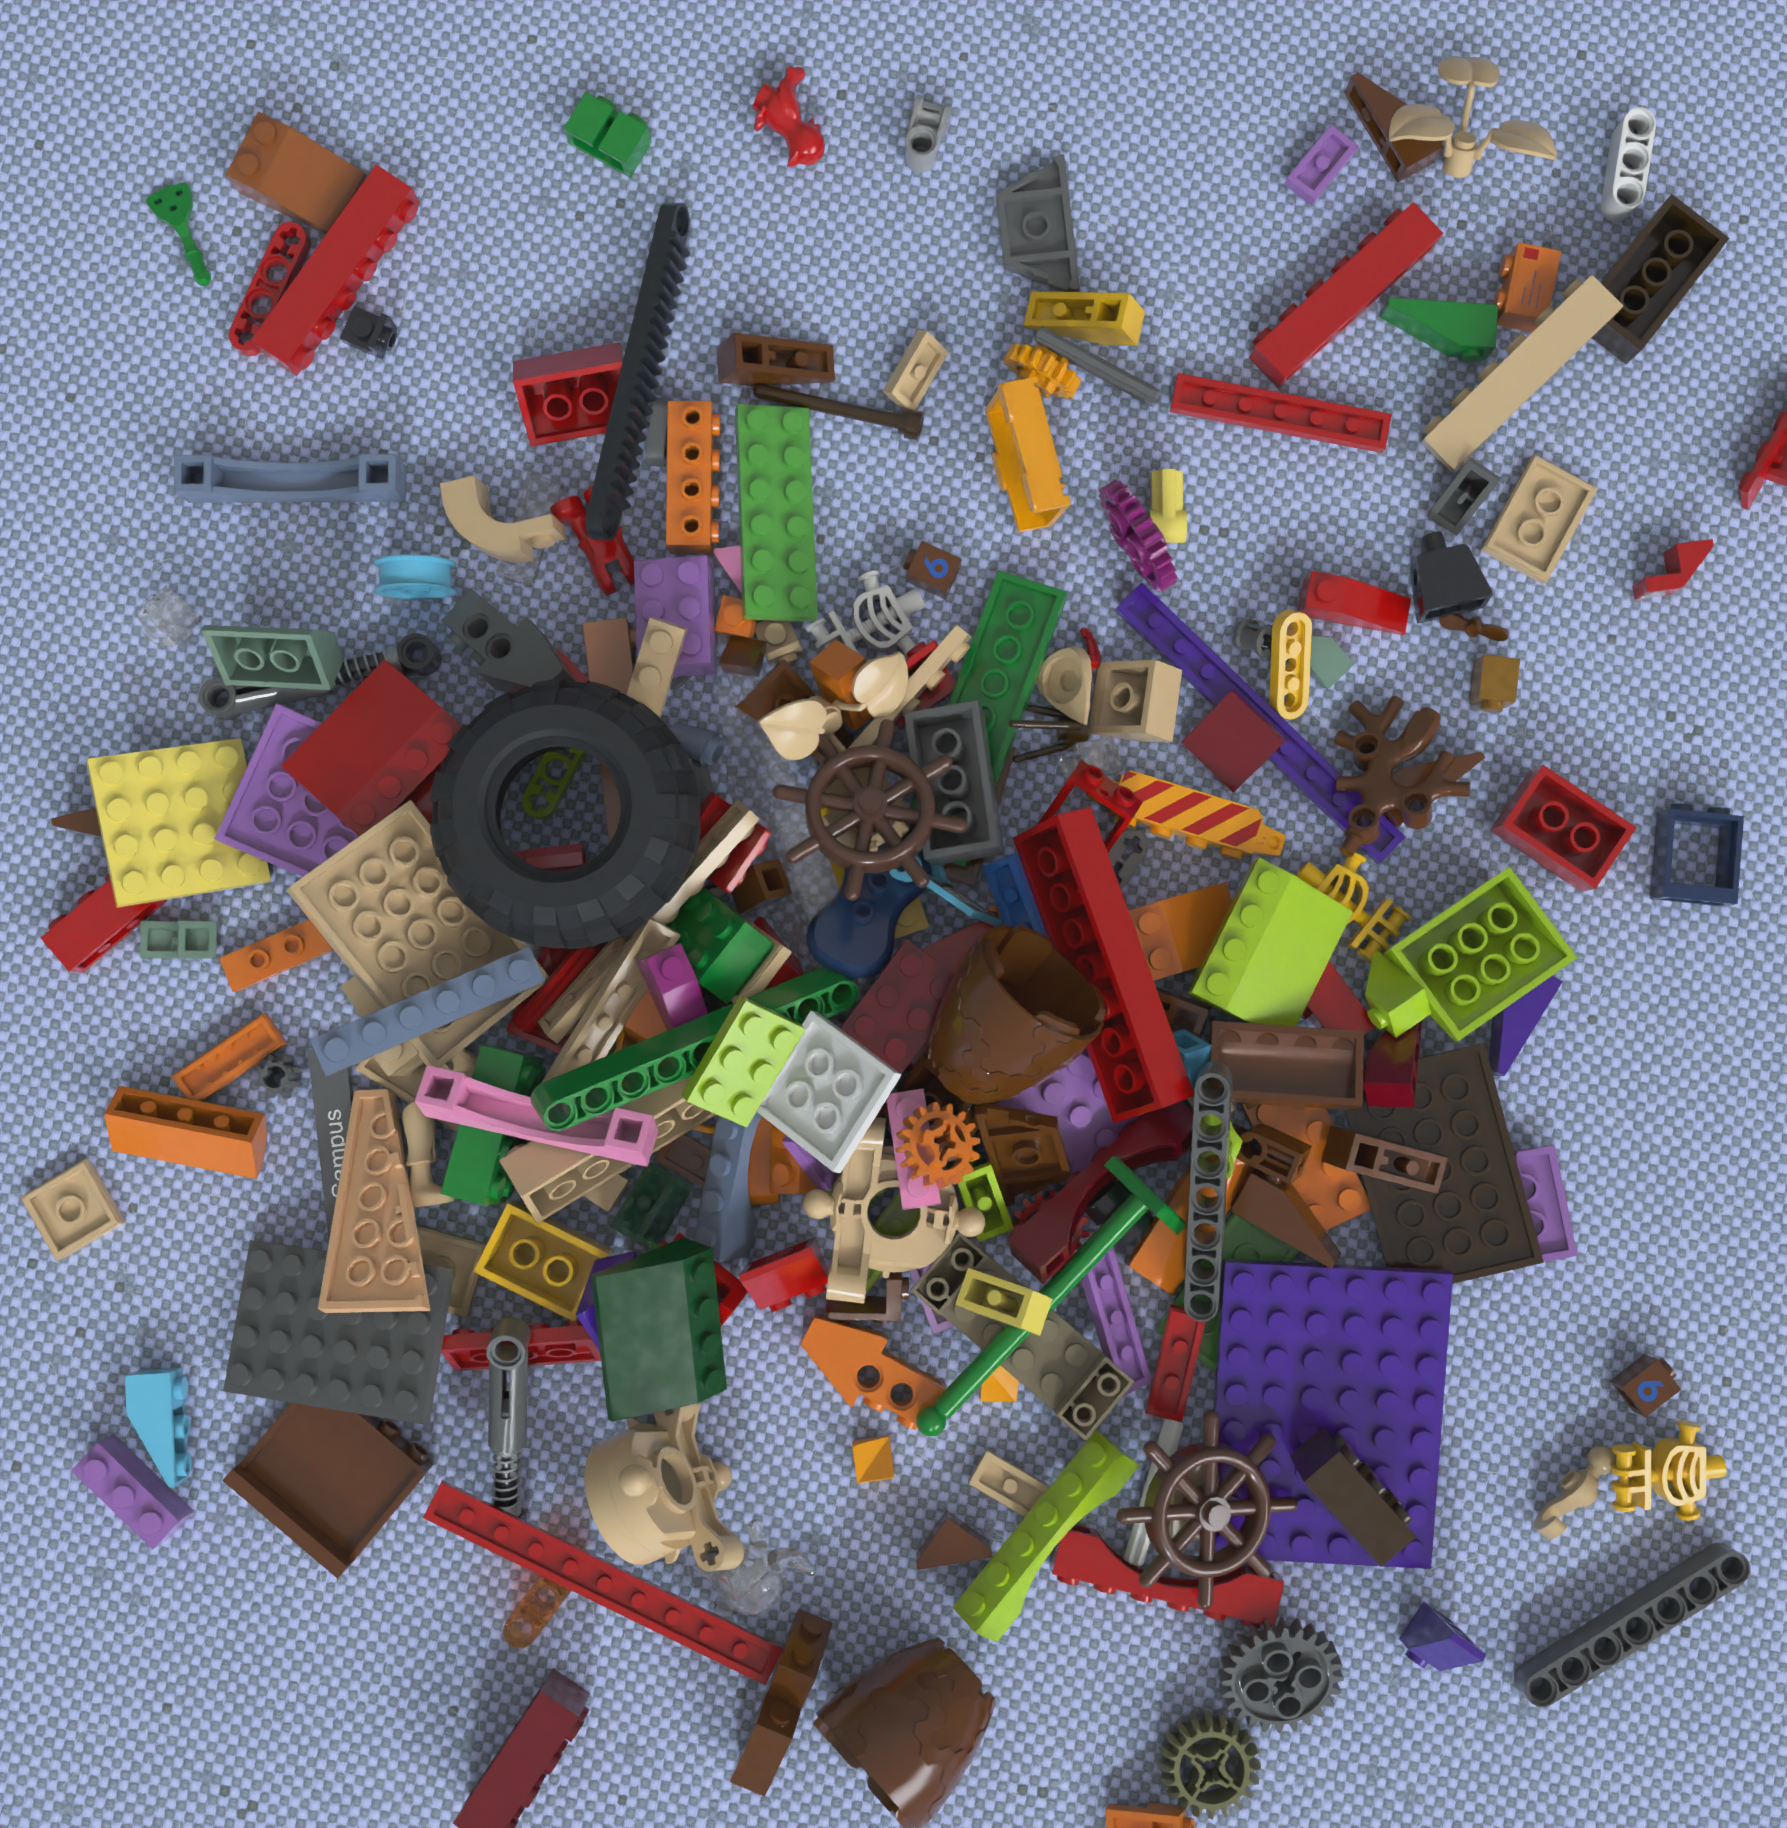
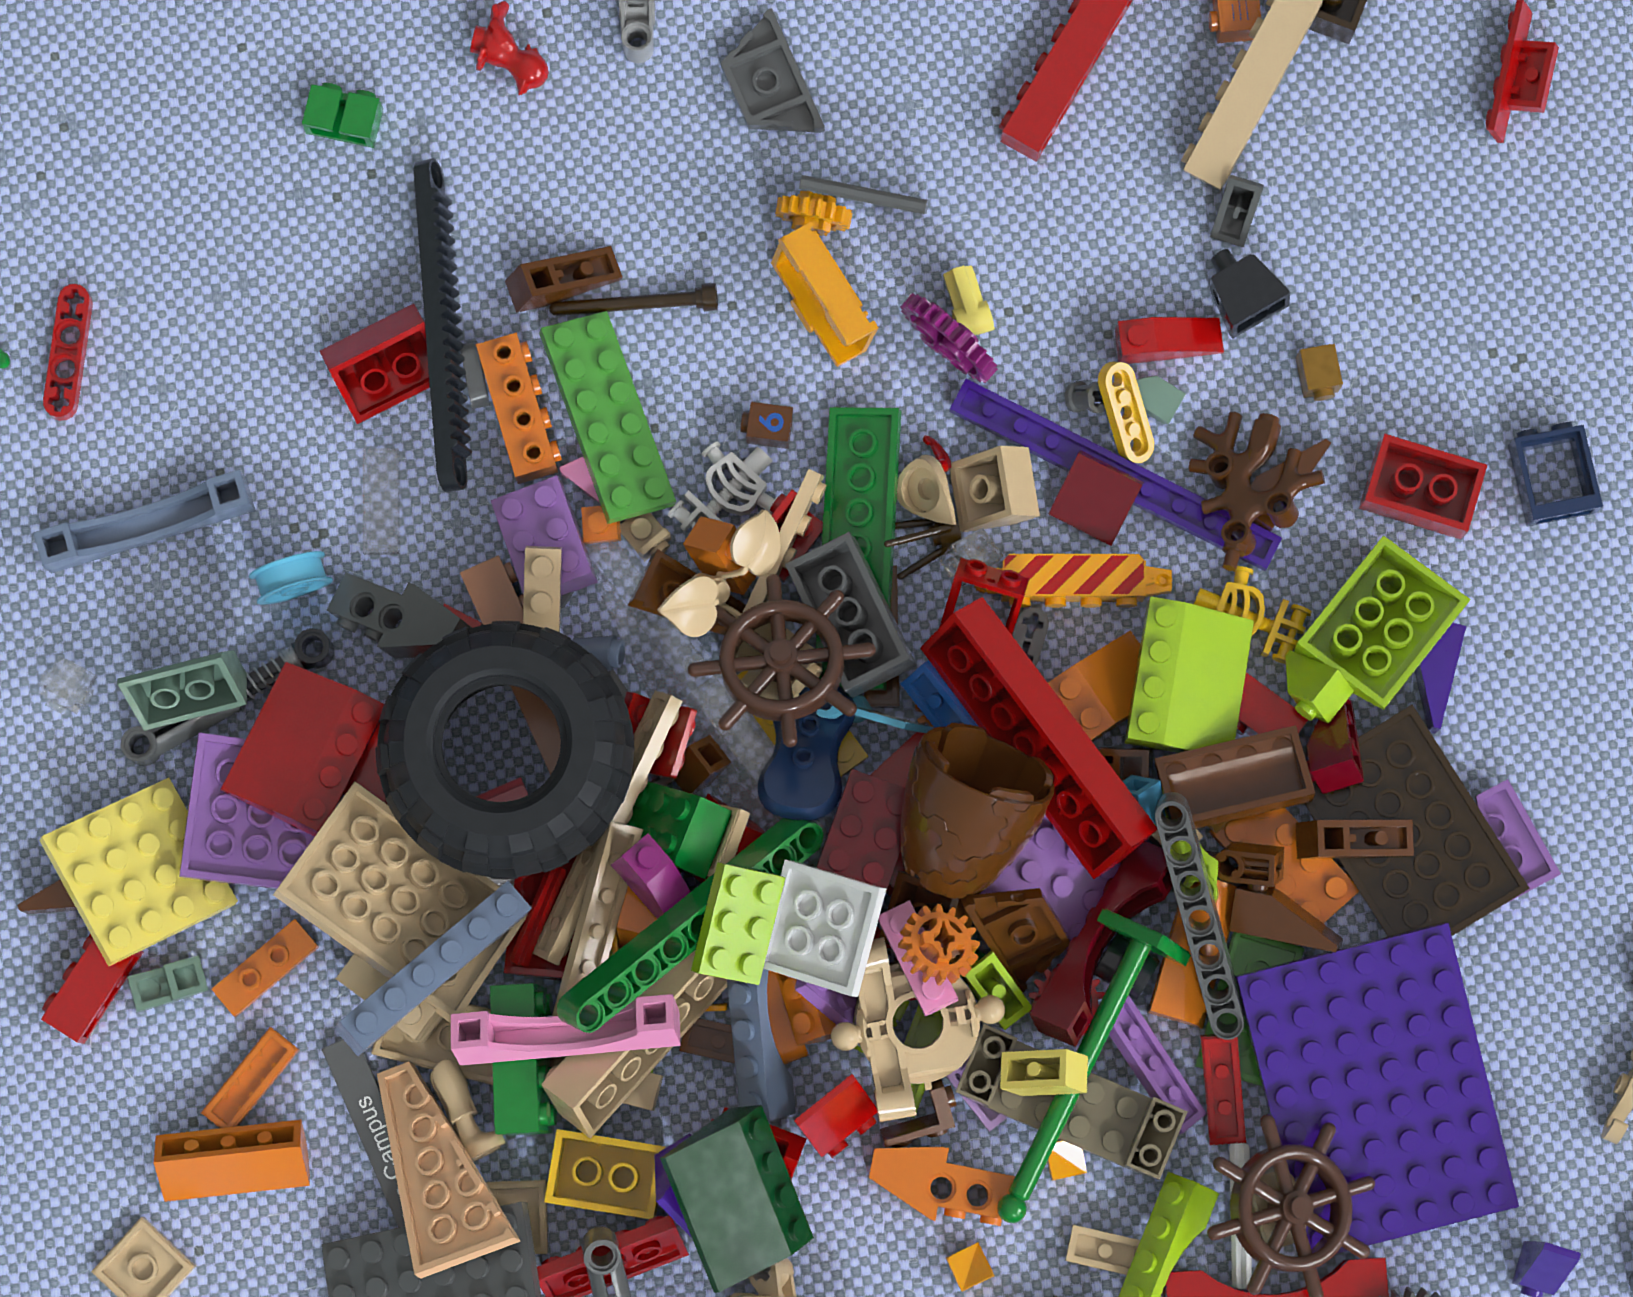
camera: 15 degrees left, 5 degrees down
(271, 1070) = (292, 1081): dark grey gear -> none
(293, 174) = (61, 240): dark orange slope -> none
(336, 271) = (127, 316): red brick -> none
(369, 332) = (174, 364): black bracket -> none
(470, 513) = (366, 519): tan arch -> none
(552, 798) = (478, 744): lime beam -> none
(598, 552) = (453, 503): red piece -> none
(651, 1206) = (690, 1092): clear green brick -> none
(743, 656) = (618, 558): reddish brown slope -> none
(915, 371) = (696, 247): tan plate -> none
(1087, 316) = (838, 150): yellow slope -> none
(1280, 413) = (1045, 184): red plate -> none
(1354, 1495) = (1420, 1150): dark brown brick -> none
(1450, 327) = (1175, 59): green slope -> none
(1474, 627) = (1285, 326): reddish brown piece -> none
(1538, 519) = (1313, 209): tan tile -> none
(1680, 565) = (1456, 210): red slope -> none

